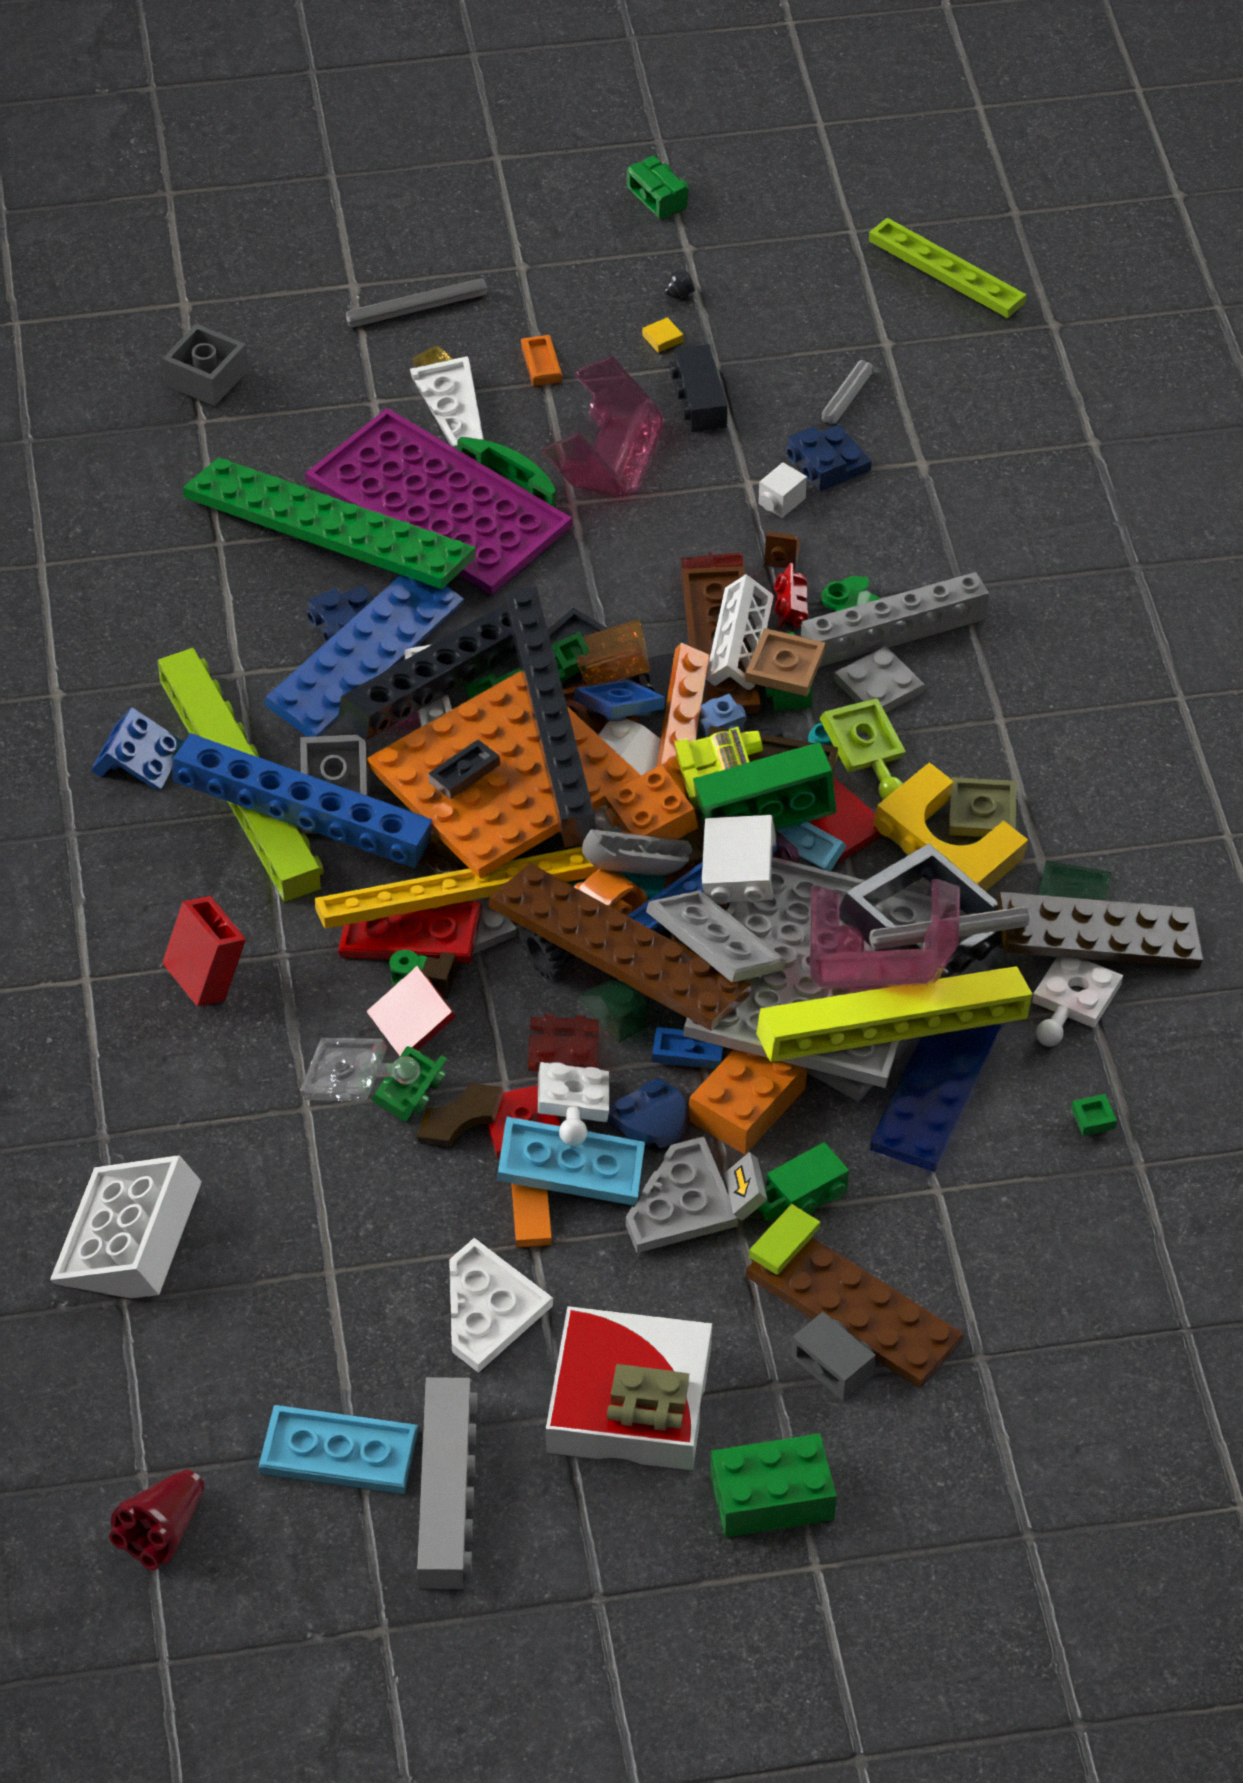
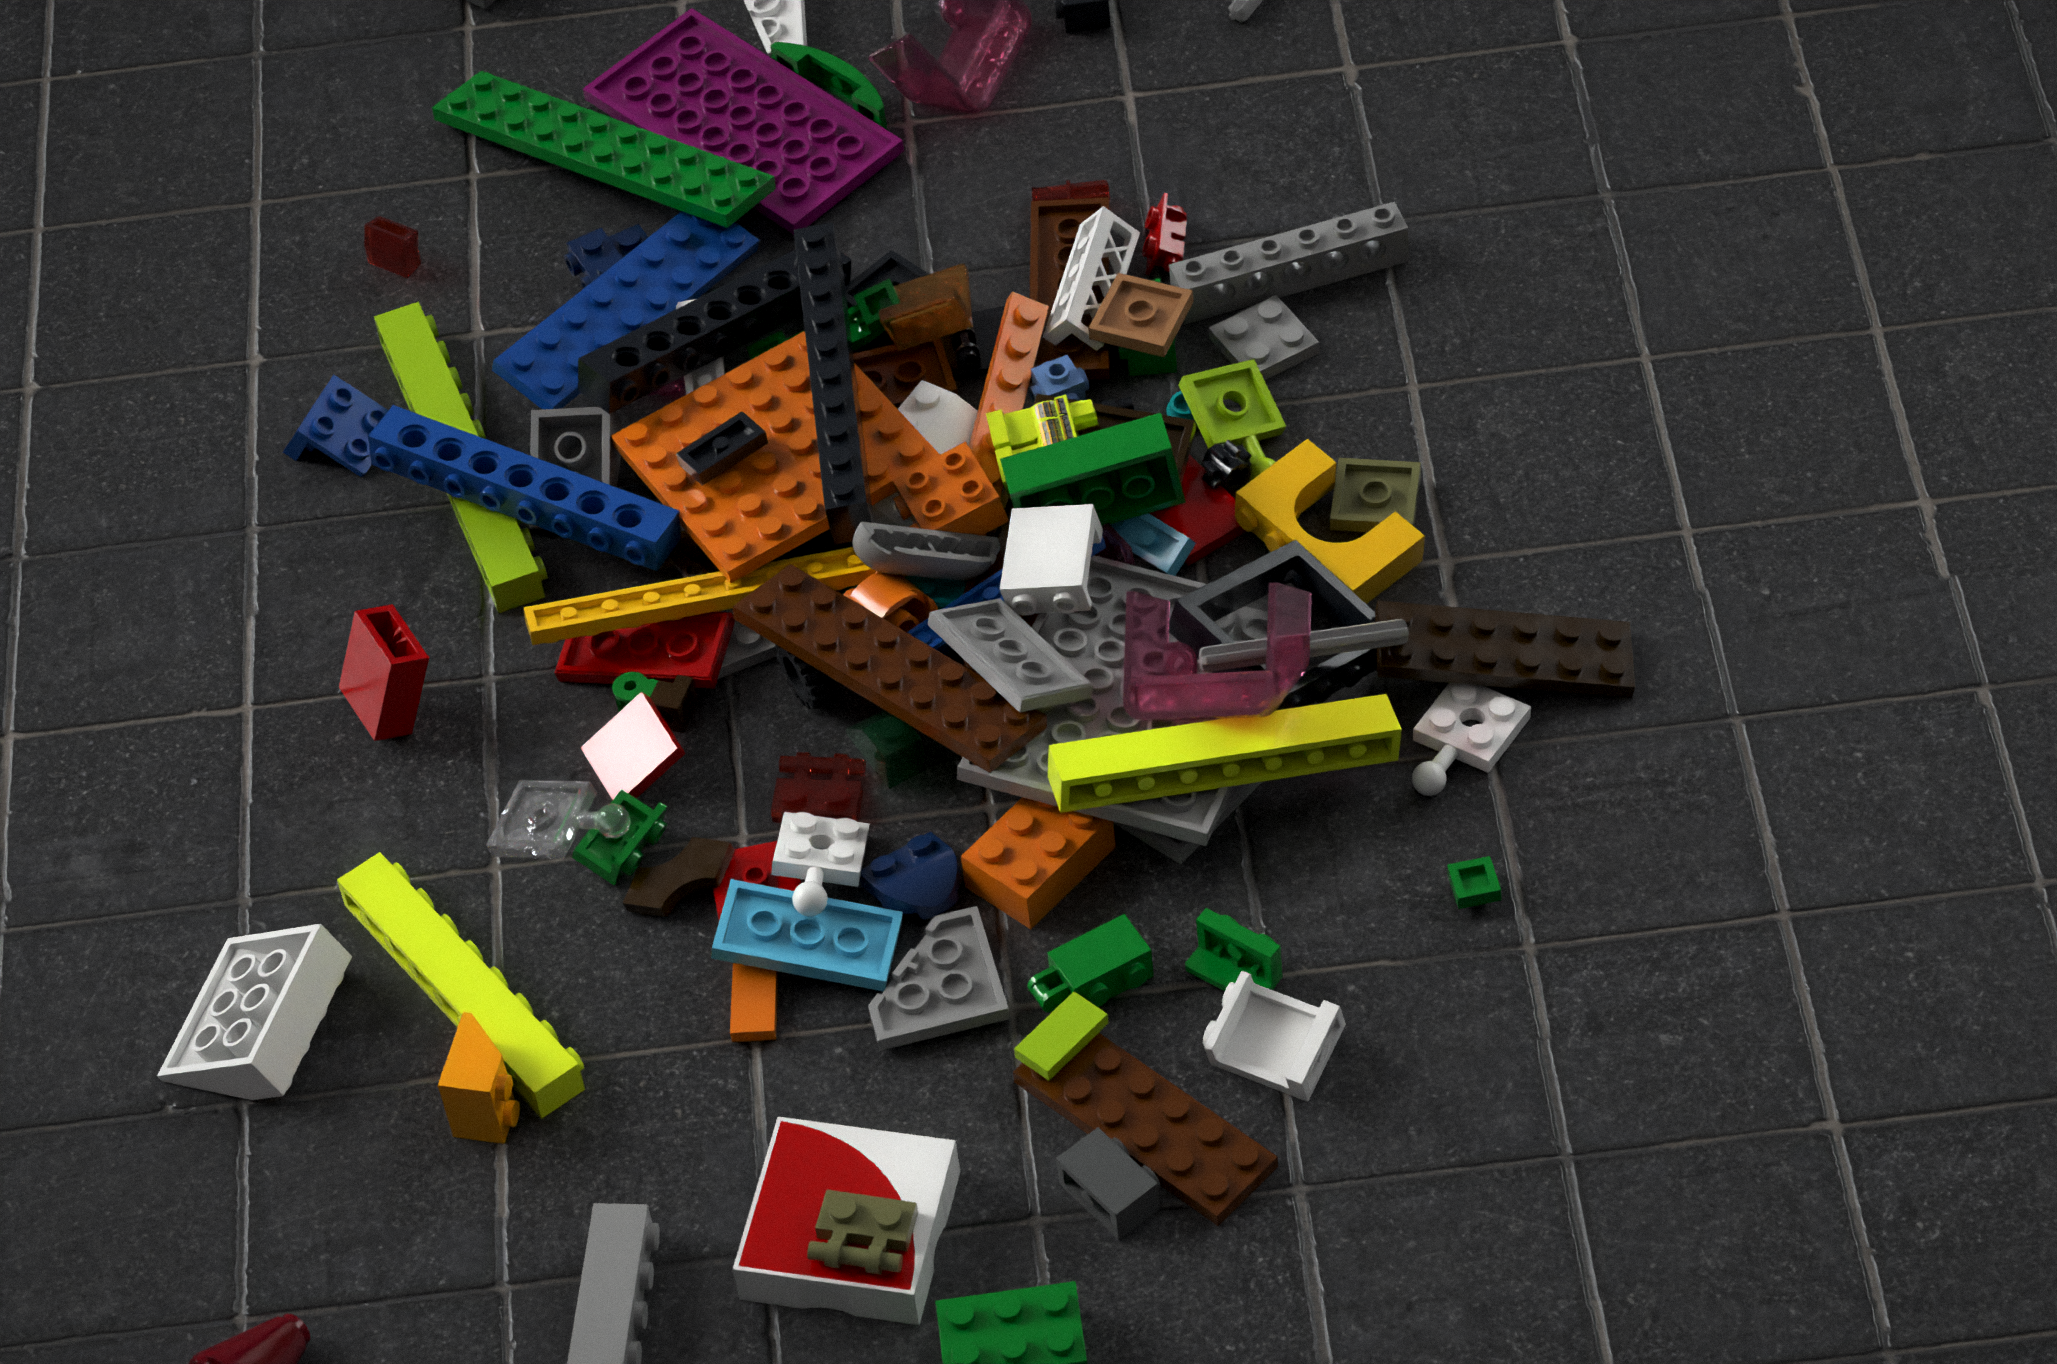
camera: 10 degrees right, 0 degrees up
(162, 601) = (392, 246): none -> clear red piece
(294, 1203) = (461, 982): none -> neon yellow brick
(321, 1285) = (477, 1086): none -> light orange slope
(339, 1449) = (483, 1291): medium azure tile -> none
(489, 1304) = (687, 1113): white plate -> none
(619, 699) = (929, 362): blue plate -> none
(676, 1049) = (963, 799): blue plate -> none
(745, 1186) = (1021, 969): light grey tile -> none
(781, 549) = (1158, 176): reddish brown bracket -> none
(782, 490) = (1167, 103): white brick -> none
(827, 456) = (1229, 61): dark blue plate -> none
(847, 593) = (1233, 230): green plate -> none
(863, 784) = (1226, 466): none -> black gear
(914, 1176) = (1230, 948): none -> green bracket
(933, 1095) = (1279, 848): clear blue plate -> none
(950, 1239) = (1273, 1037): none -> white panel
(1074, 881) = (1483, 588): clear green tile -> none

